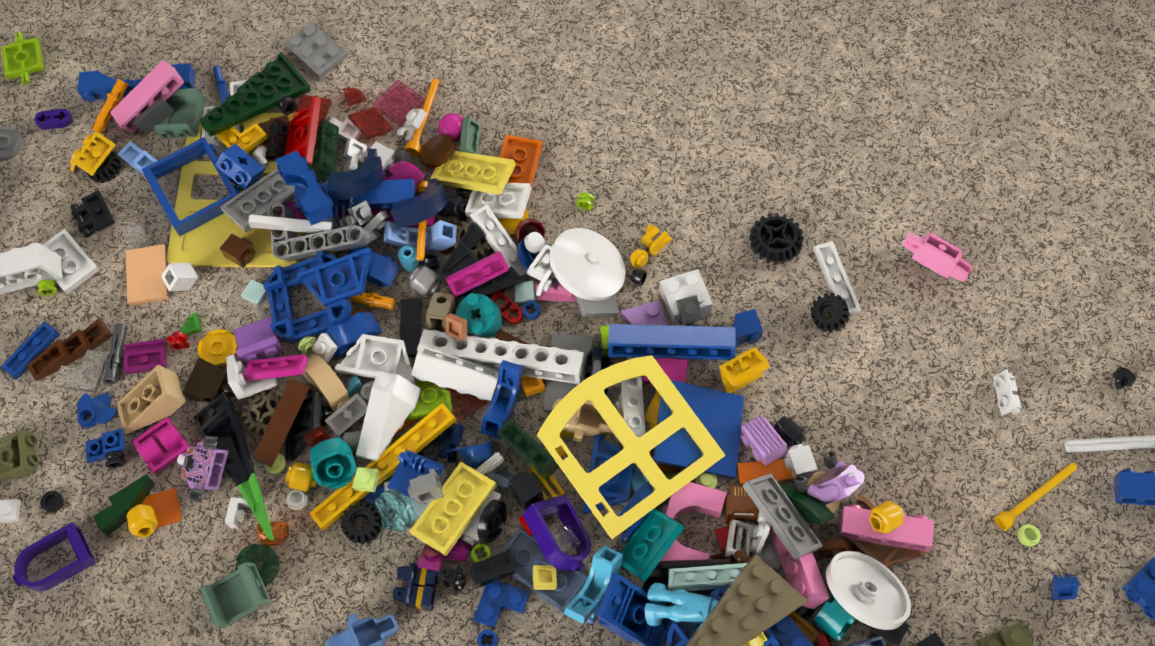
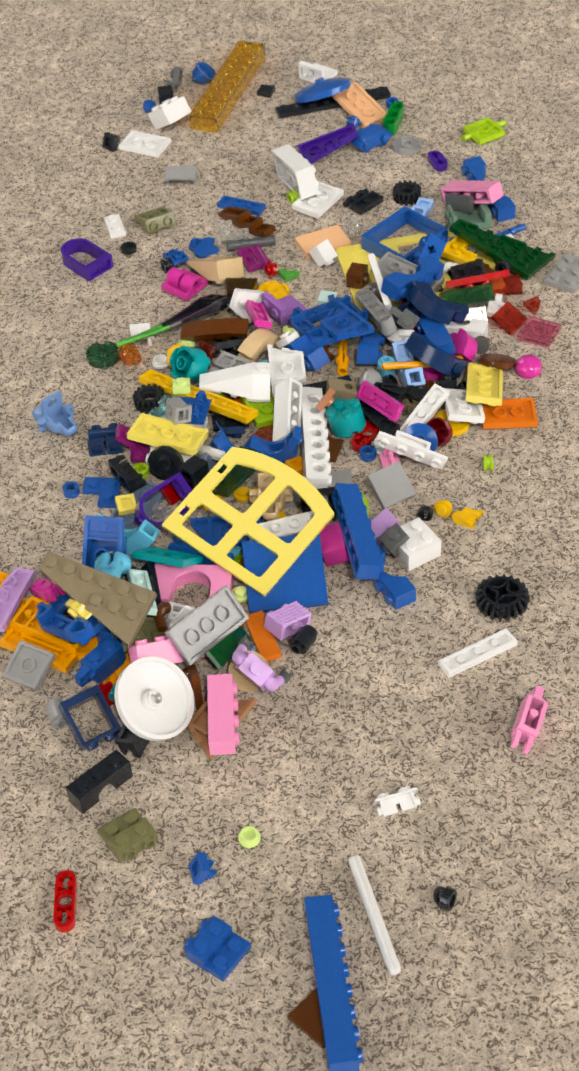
camera: 75 degrees right, 20 degrees down
(92, 153) = (409, 179): yellow bracket -> none
(112, 101) = (474, 176): light orange pin -> none
(122, 503) = (133, 278): dark green slope -> none
(142, 520) = (122, 288): yellow head -> none
(165, 506) = (136, 299): orange piece -> none
(203, 467) = (168, 304): torso -> none
(235, 595) = (74, 345): sand green panel -> none
(413, 121) = (522, 340): white plate -> none
(413, 145) = (497, 348): light orange piece -> none
(453, 578) = (110, 448): black hinge -> none
(470, 135) = (521, 378): sand green plate -> none
(534, 242) = (428, 433): white tile -> none
(587, 264) = (418, 469): white dish -> none
(743, 369) = (347, 588): yellow bracket -> none
(800, 461) = (272, 646): white brick -> none
(838, 321) = (434, 647): black tyre -> none
(886, 517) = (224, 696): yellow head -> none
(1006, 519) = (260, 815): yellow piece -> none

